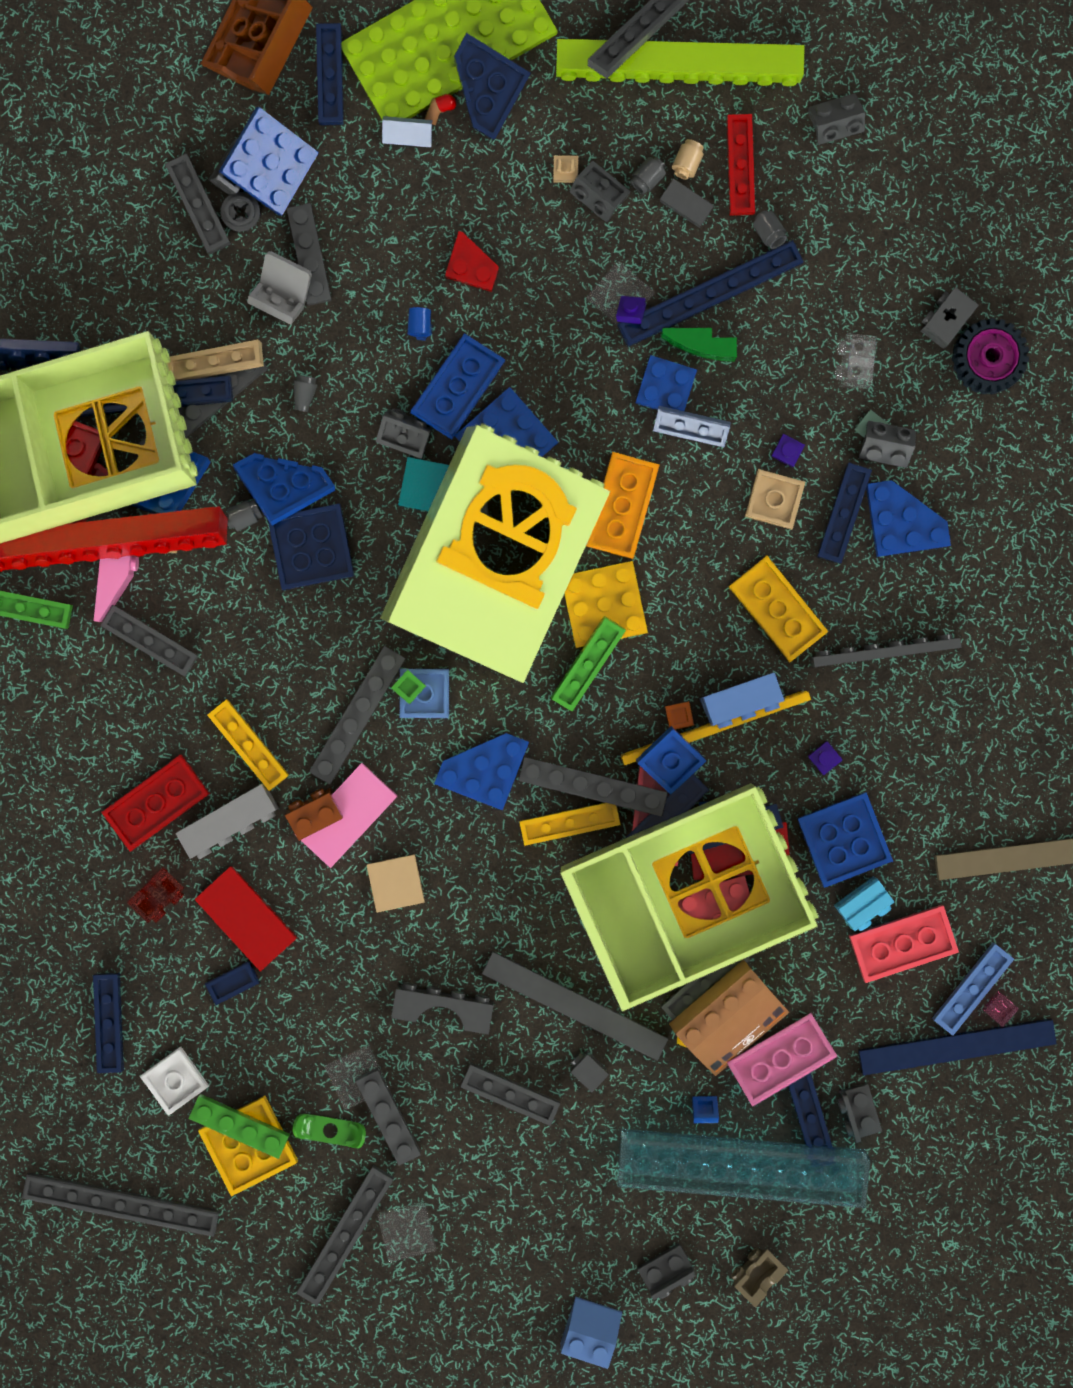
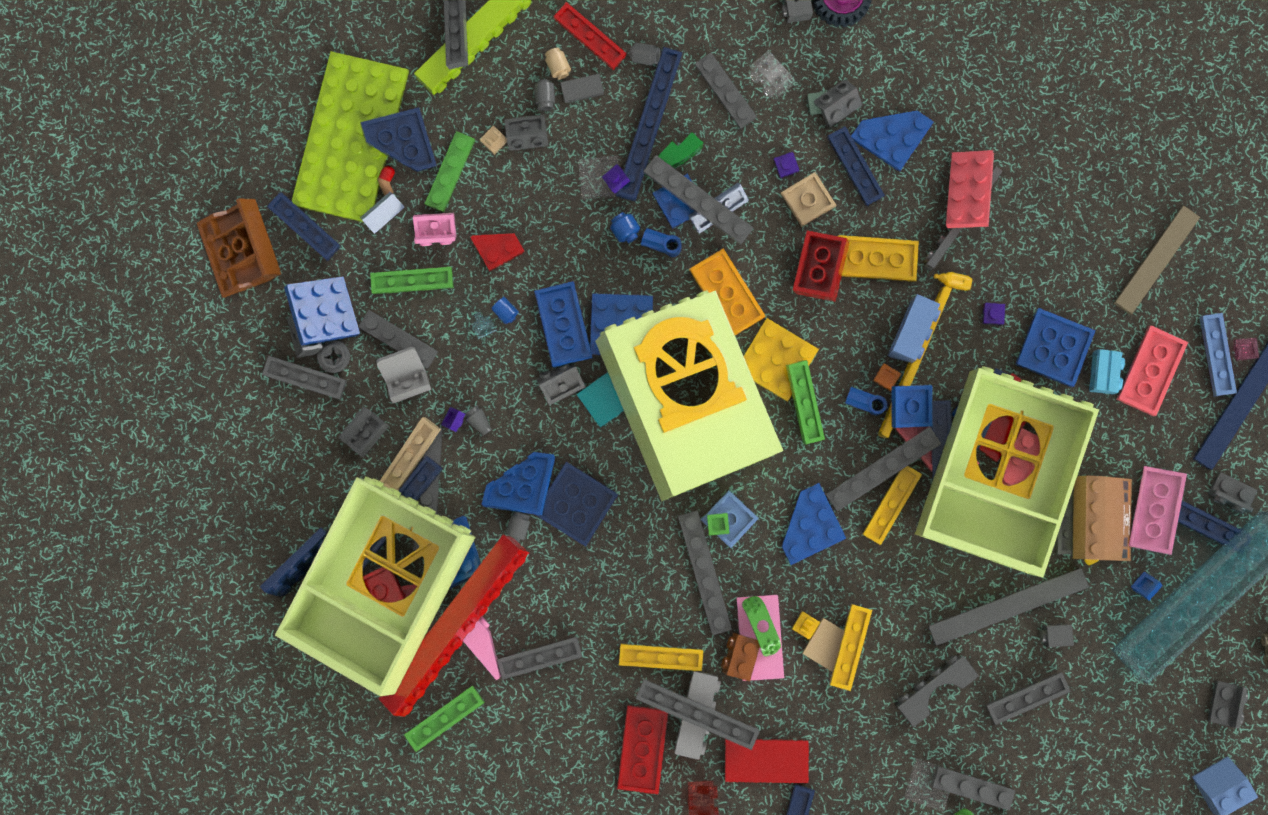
camera: 45 degrees left, 5 degrees down
(199, 301) = (363, 431): none -> dark grey bracket
(226, 821) = (697, 714): none -> dark grey plate
(283, 370) = (453, 419): none -> dark purple plate
(364, 791) = (757, 611): none -> bright green piece
(371, 216) = (411, 280): none -> bright green plate
(390, 317) = (483, 325): none -> clear light blue tile
(394, 845) = (805, 625): none -> yellow tile
(409, 901) = (850, 647): none -> yellow plate
(436, 192) = (434, 228): none -> bright pink bracket
(500, 157) = (449, 171): none -> bright green plate
(595, 360) = (625, 227): none -> blue head
(612, 403) = (659, 242): none -> blue piece
(638, 714) = (863, 401): none -> blue piece
(680, 400) = (698, 200): none -> dark grey plate
(722, 565) = (821, 266): none -> red brick
(805, 333) = (725, 90): none -> dark grey plate
(823, 696) = (955, 280): none -> yellow piece
(917, 633) = (970, 189): none -> coral plate

